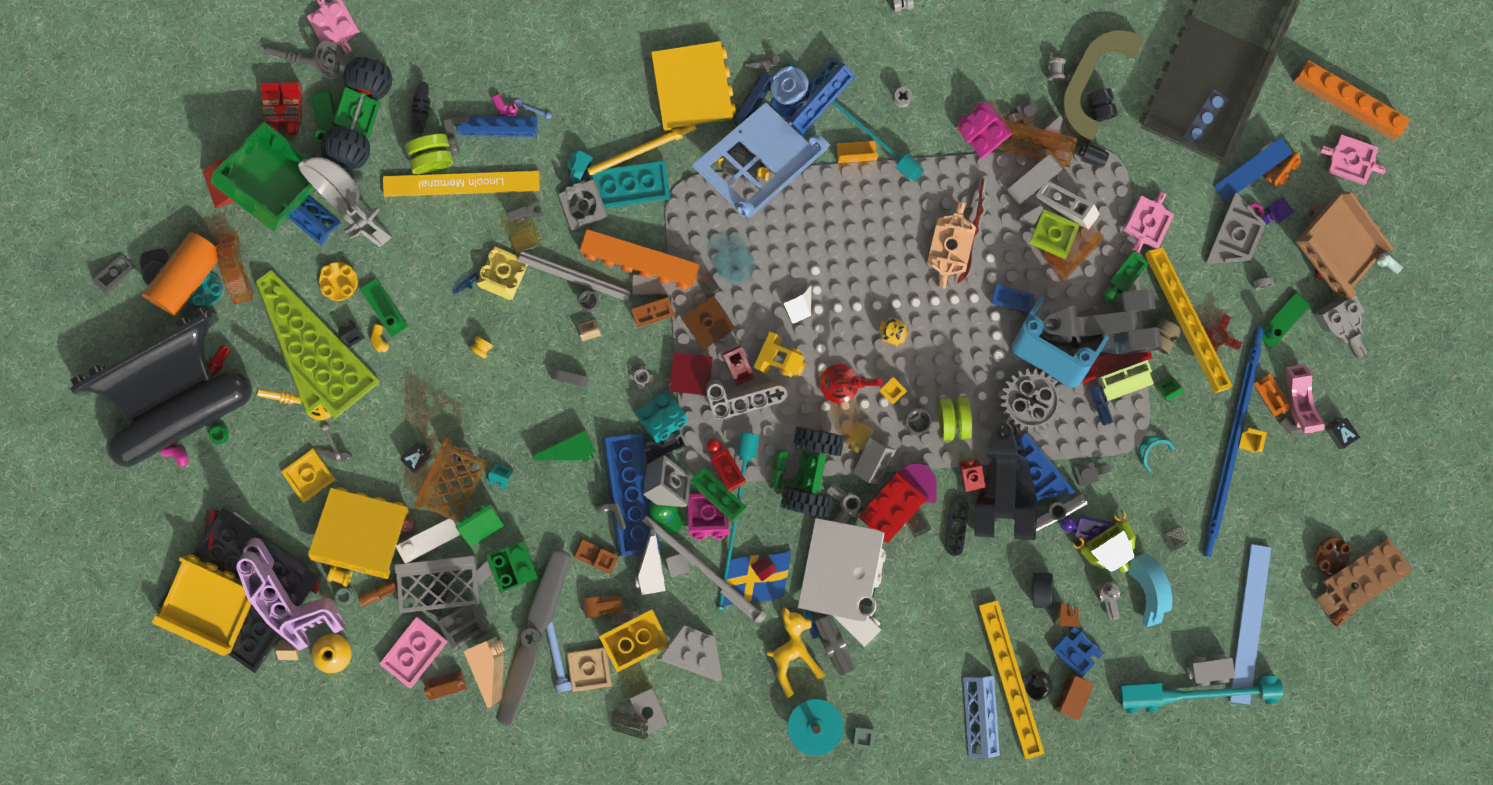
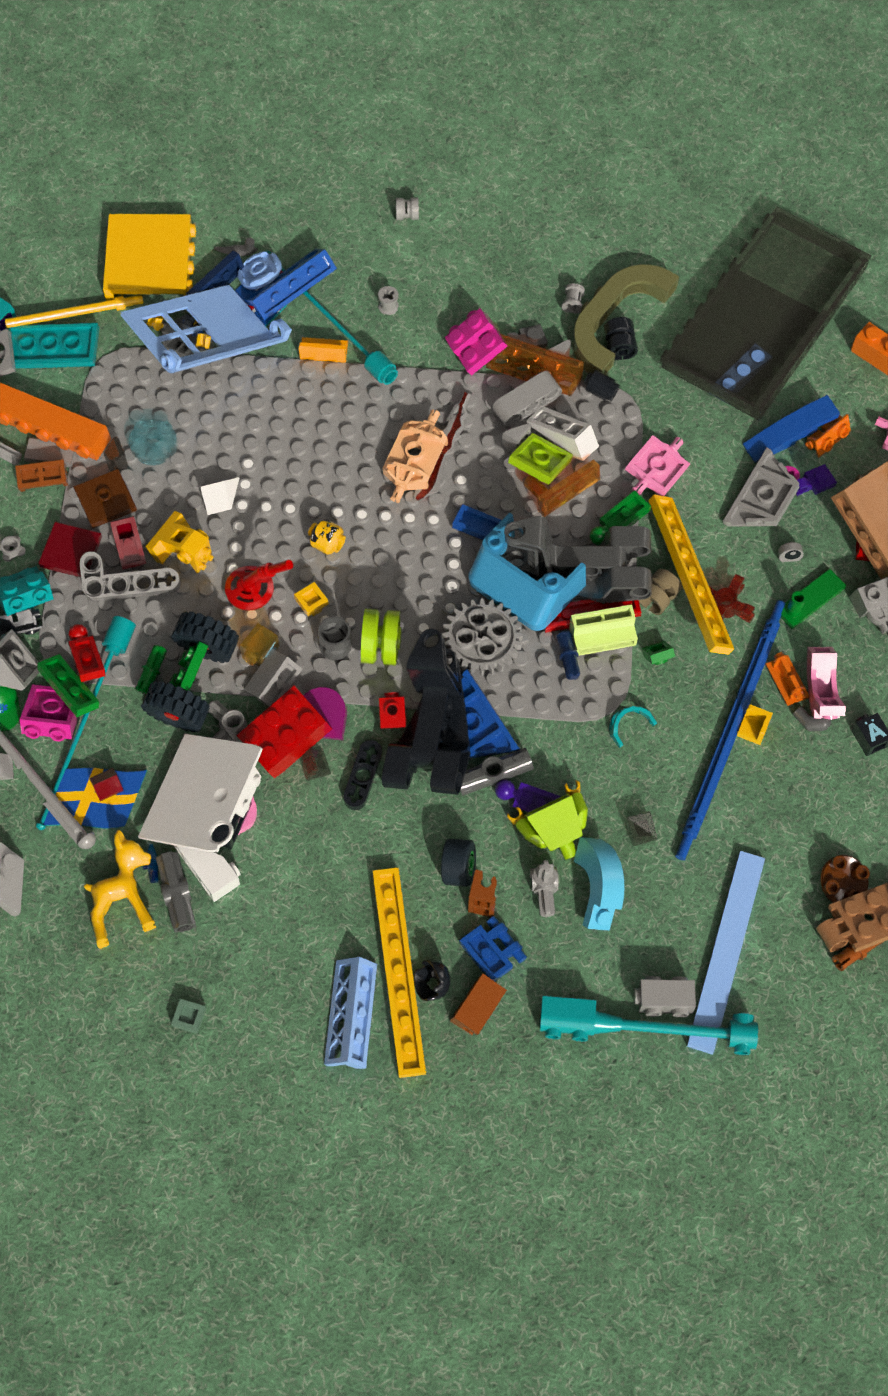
camera: 10 degrees right, 20 degrees down
(815, 727) = (124, 984): teal piece -> none
(1088, 473) = (542, 736): dark grey plate -> none

